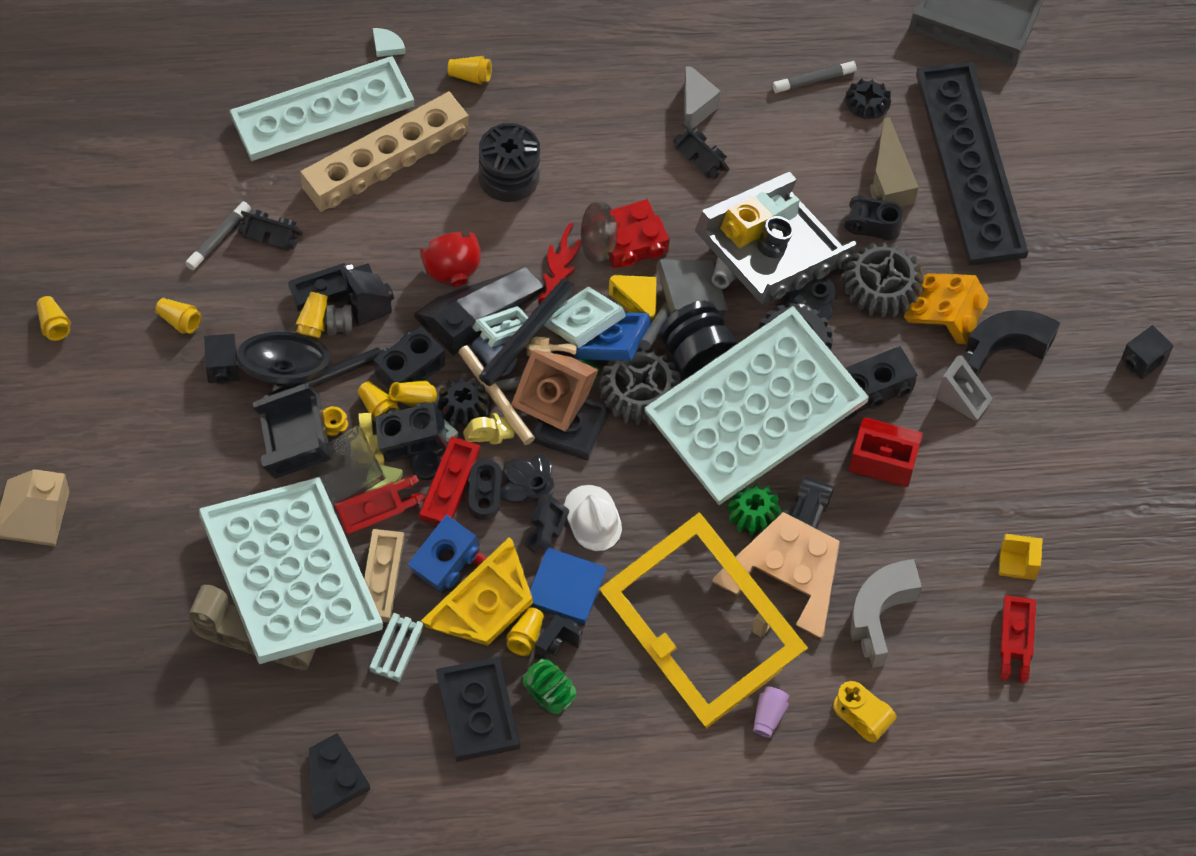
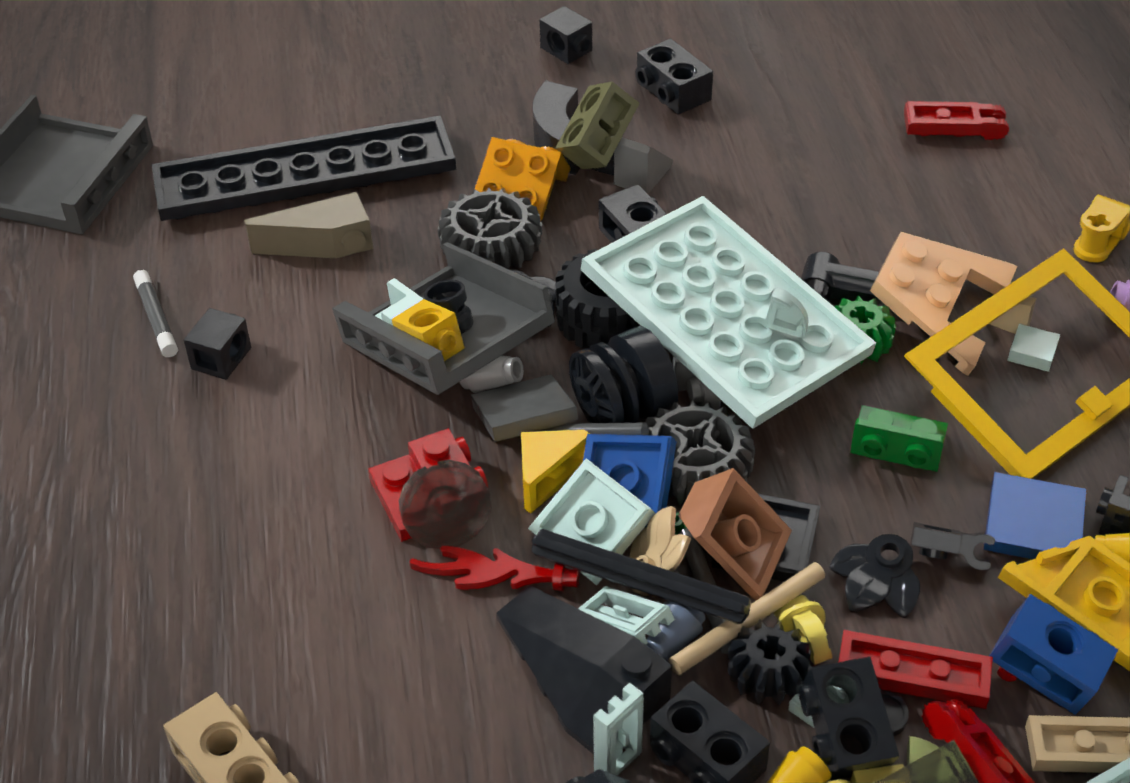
camera: 90 degrees left, 15 degrees down
(412, 306) = (619, 730): none -> light aqua tile
(413, 392) = (775, 722): yellow cone -> none
(452, 258) = (510, 691): red cylinder -> none
(471, 69) = (102, 715): yellow cone -> none
(485, 491) = (912, 620): black plate -> none
(509, 162) = (311, 630): black wheel -> none
(593, 517) = (917, 492): white piece -> none
(648, 516) = (899, 438): none -> green bracket
(694, 143) = (269, 423): black hinge -> none
(700, 98) = (187, 423): light grey slope -> none
(733, 426) = (786, 314): none -> light aqua tile
(733, 629) = (1033, 347): none -> light aqua tile
(772, 111) = (217, 343): none -> black brick
(873, 218) = (393, 239): black piece -> none
(877, 106) = (209, 264): black gear -> none
(885, 452) = (753, 203): red slope -> none
(885, 588) = (974, 227): light grey arch -> none
(968, 339) = (597, 125): none -> olive brick
(1020, 557) = (853, 115): yellow panel -> none
(1085, 432) = (674, 76): none -> black brick

